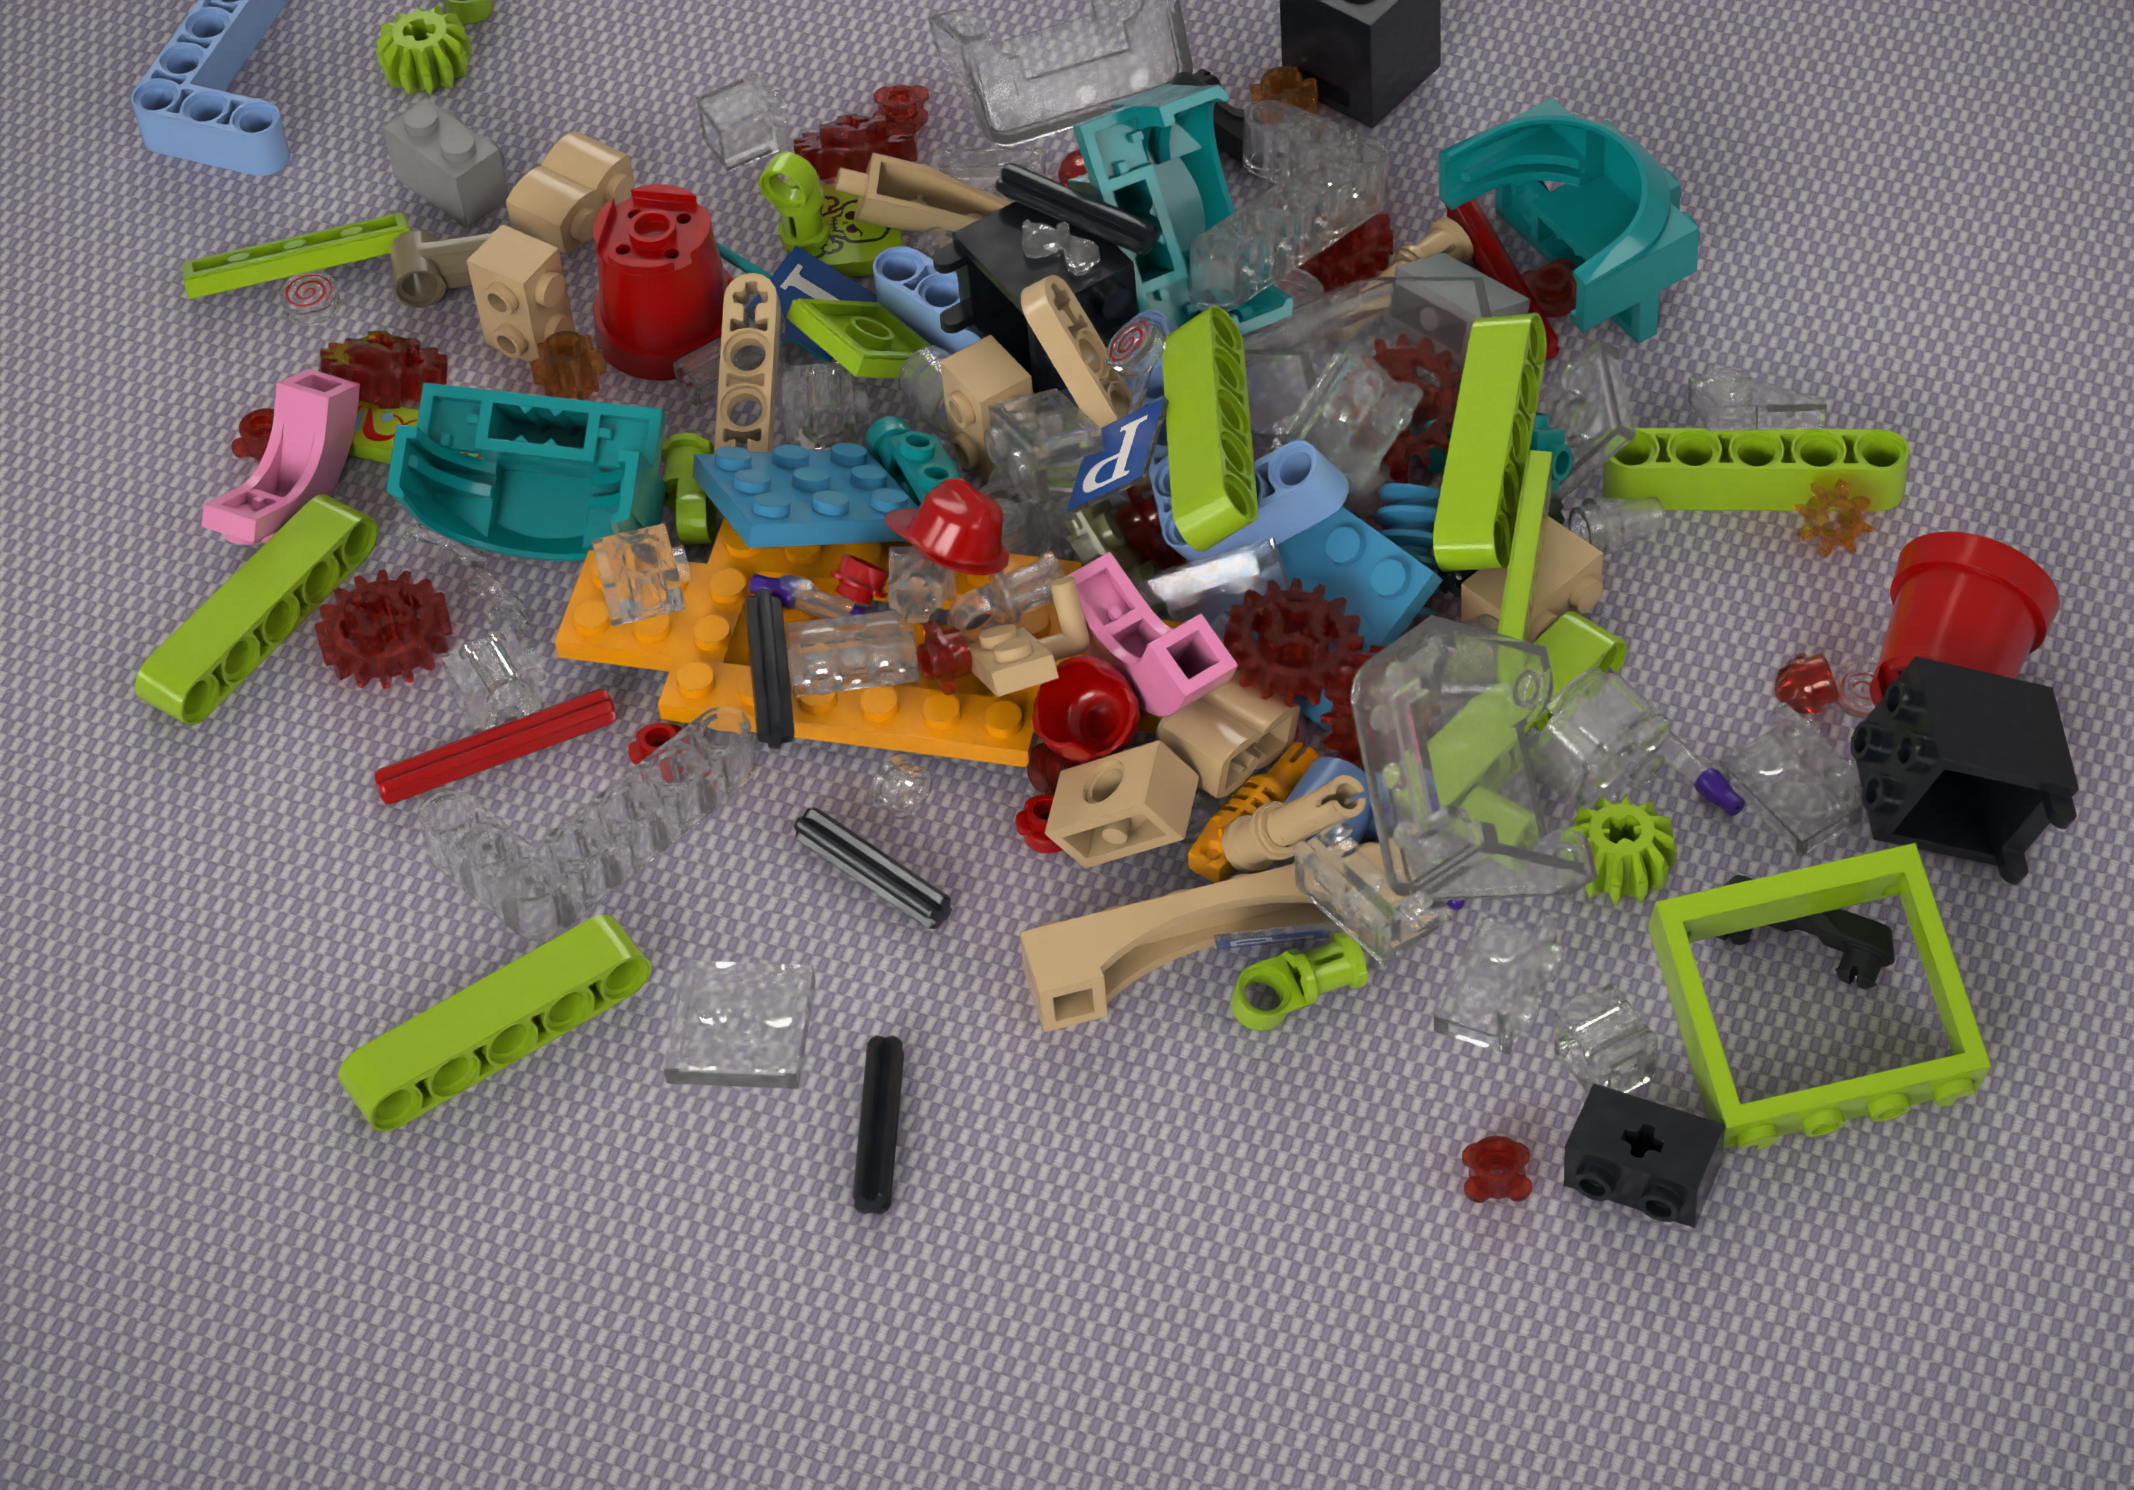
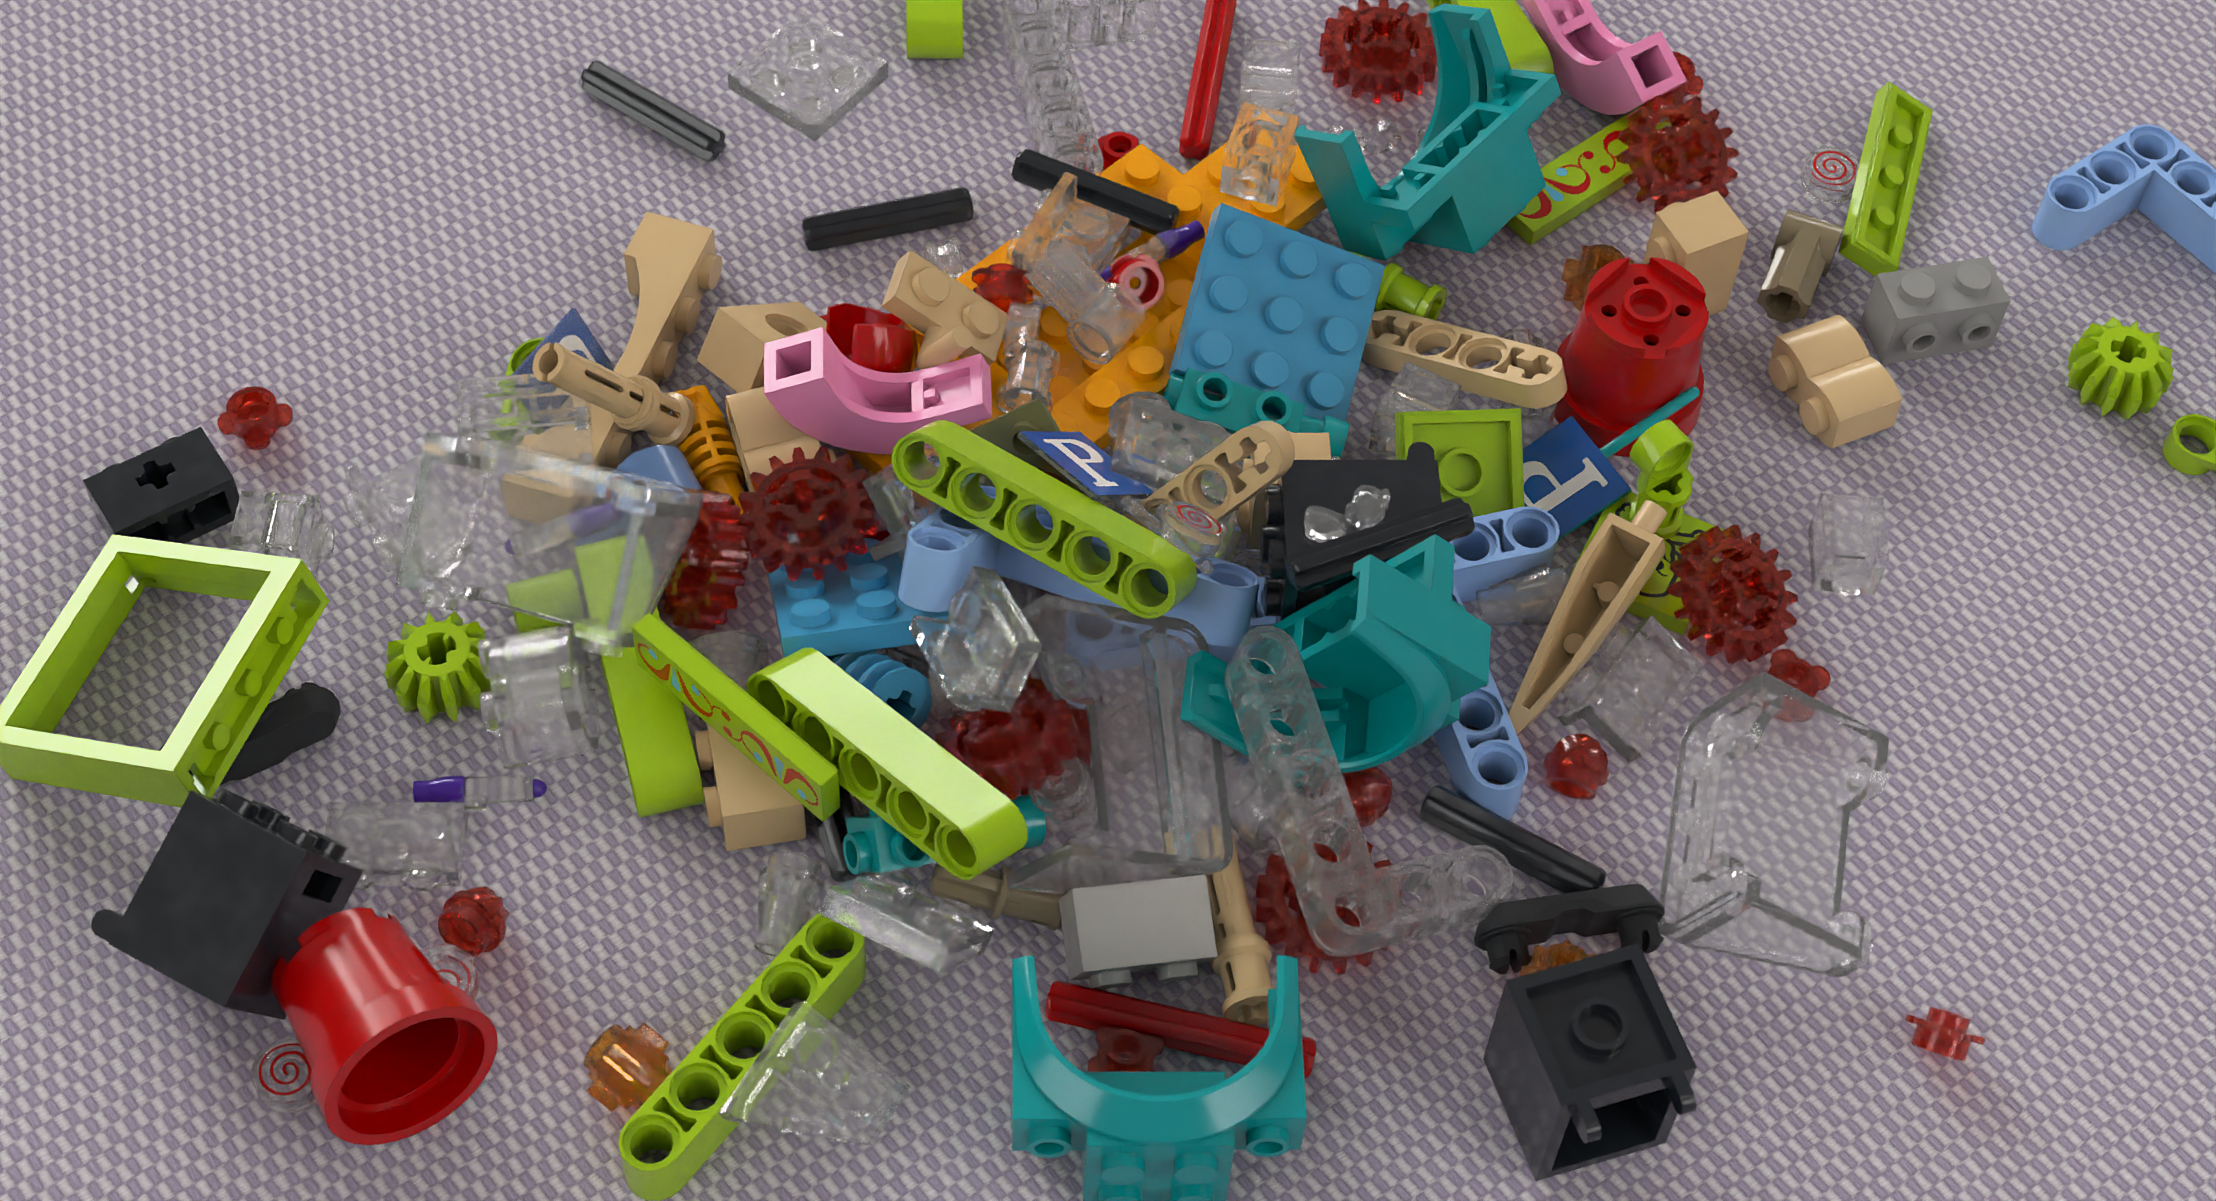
camera: 115 degrees right, 5 degrees up
(955, 528) = (1115, 337): red piece -> none

